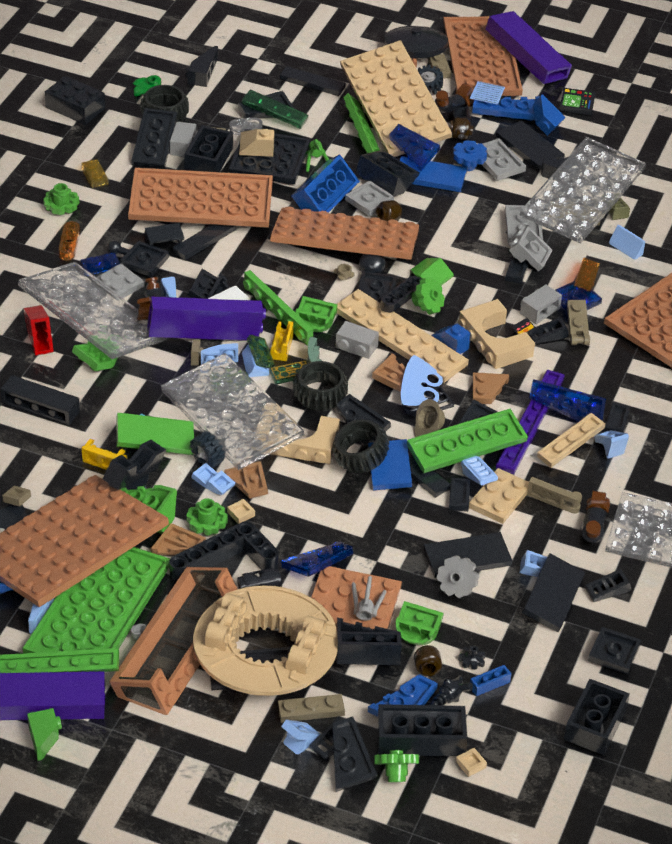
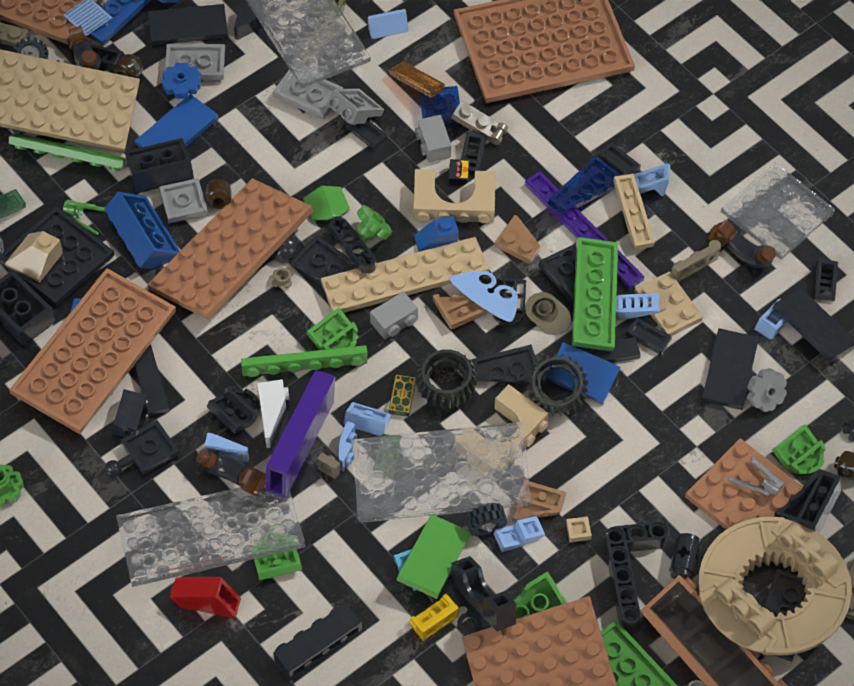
camera: 60 degrees left, 15 degrees up
(67, 235) = (75, 514): clear orange beam -> none
(100, 263) = (128, 492): clear blue plate -> none
(121, 280) = (168, 485): light grey plate -> none
(176, 540) = (600, 594): medium nougat wing -> none
(207, 517) = (571, 563): bright green plant -> none
(260, 351) = (363, 407): clear green tile -> none
(282, 342) = (357, 381): yellow hinge -> none
(313, 350) = (400, 366): sand green slope -> none
(318, 559) = (678, 494): clear blue wing -> none
(415, 146) = (137, 120): clear blue wing -> none

